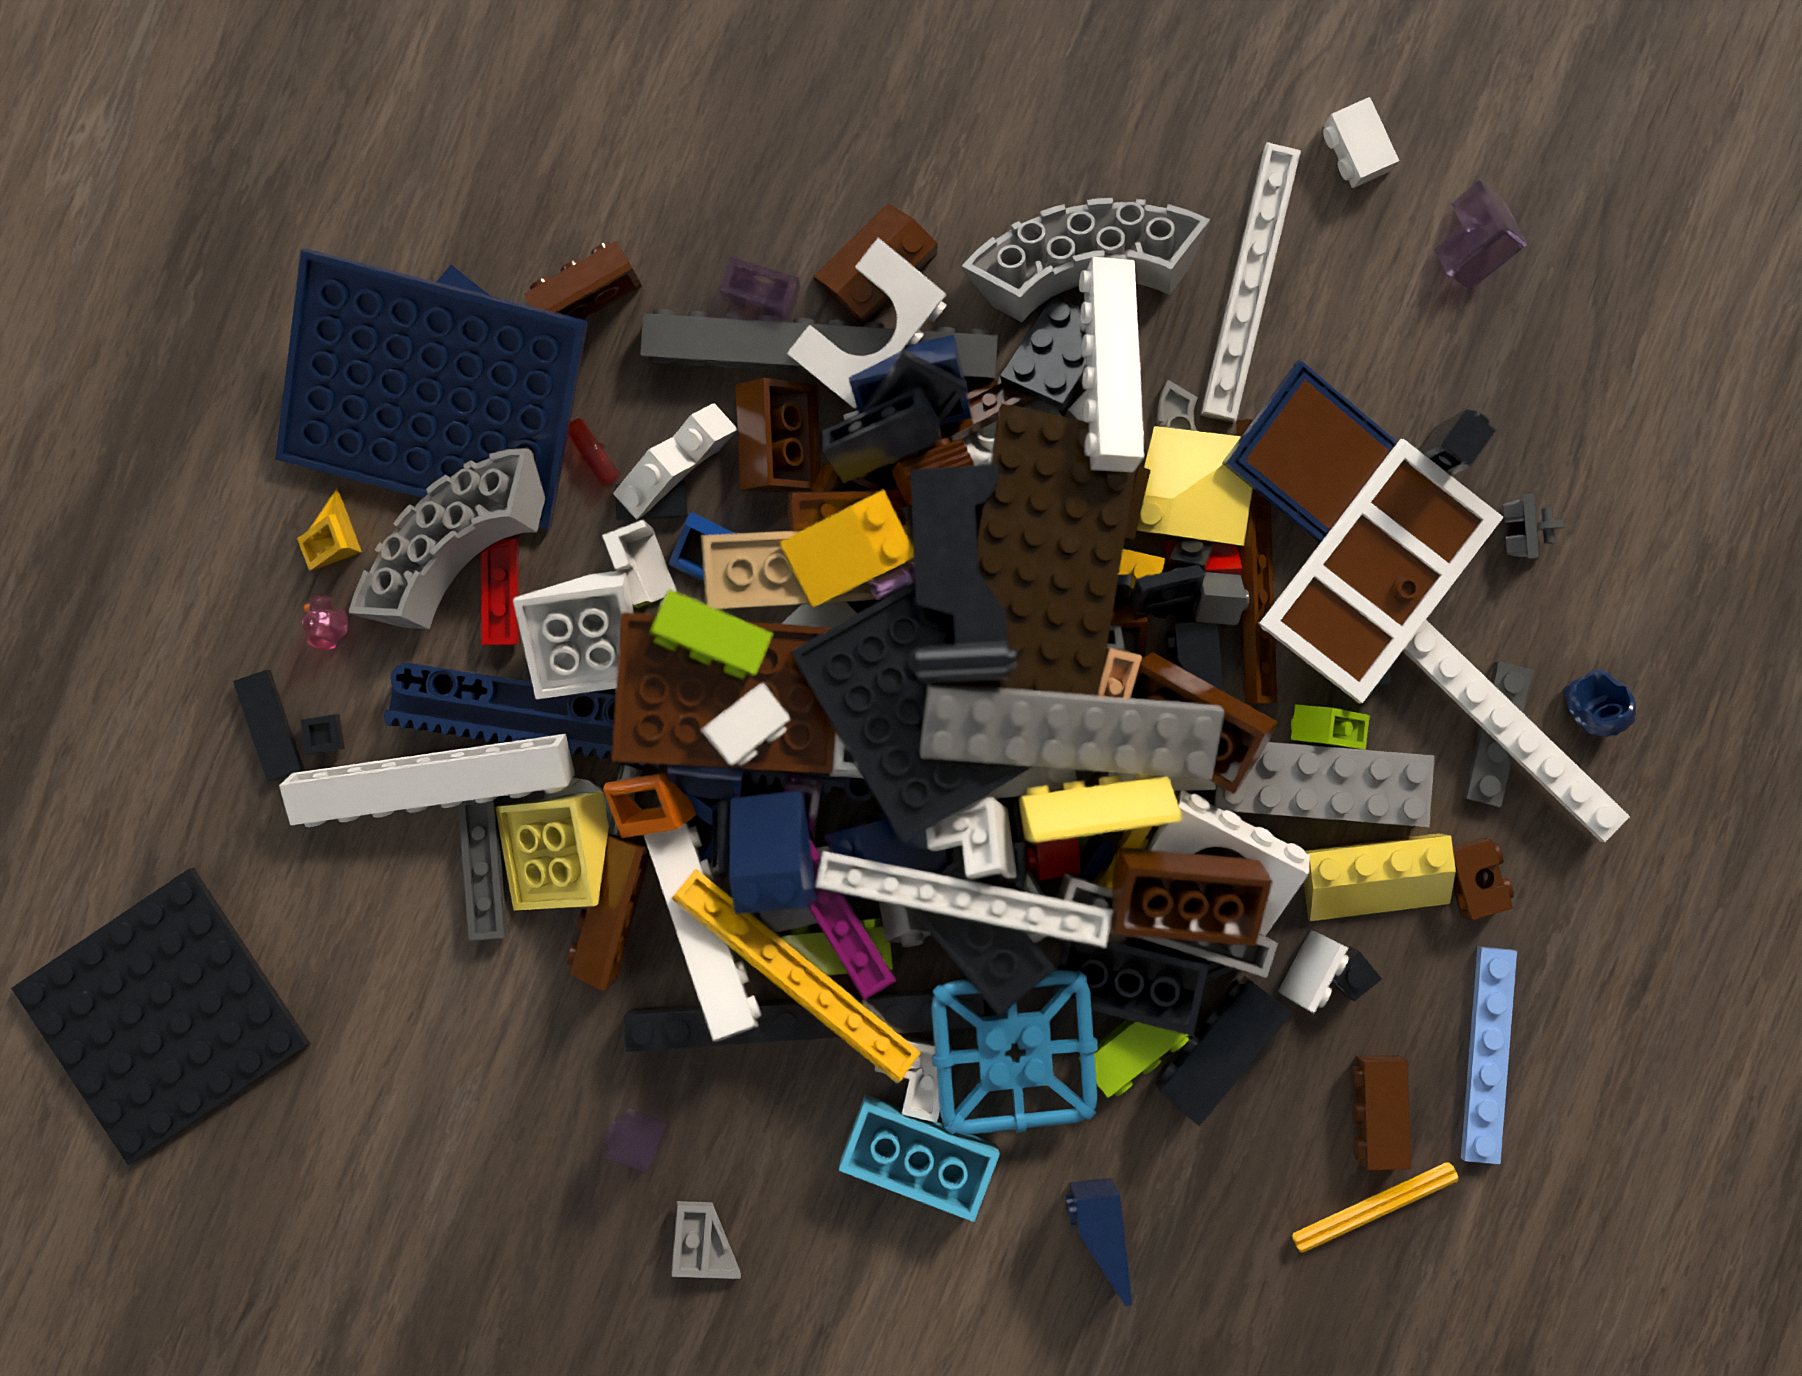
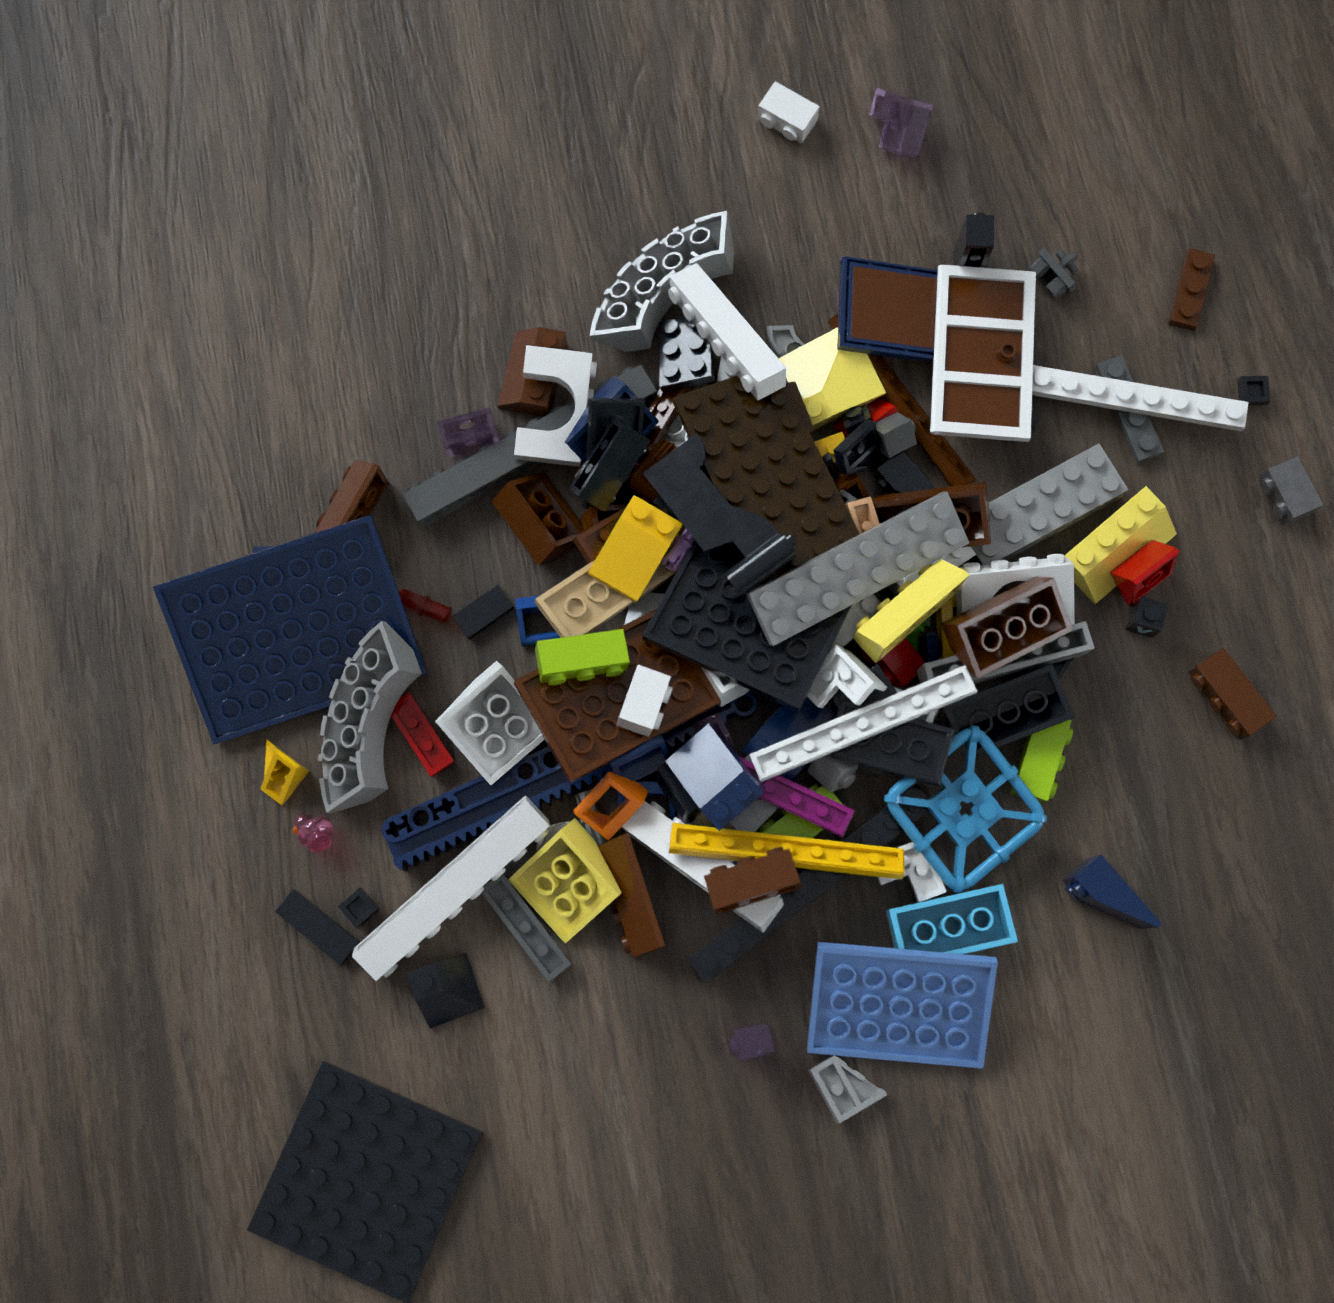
camera: 25 degrees left, 10 degrees down
(359, 877) = (446, 990): none -> black slope
(639, 553) = (492, 646): white panel -> none
(673, 459) = (481, 574): white arch -> none
(735, 987) = (752, 880): none -> reddish brown brick
(812, 1204) = (901, 1004): none -> medium blue plate
(1221, 1049) = (1098, 720): black slope -> none
(1250, 282) = (778, 238): white tile -> none
(1313, 971) = (1121, 628): white slope -> none
(1330, 726) = (1018, 470): lime slope -> none
(1375, 1207) = (1272, 761): yellow axle -> none
(1384, 921) = (1144, 570): none -> red slope
(1486, 899) = (1183, 518): reddish brown brick -> none
(1488, 1055) = (1272, 614): light blue plate -> none
(1600, 703) = (1179, 347): dark blue hair -> none
(1604, 940) = (1290, 491): none -> flat silver brick
(1647, 804) = (1254, 390): none -> black plate
(1664, 645) = (1191, 289): none -> reddish brown plate

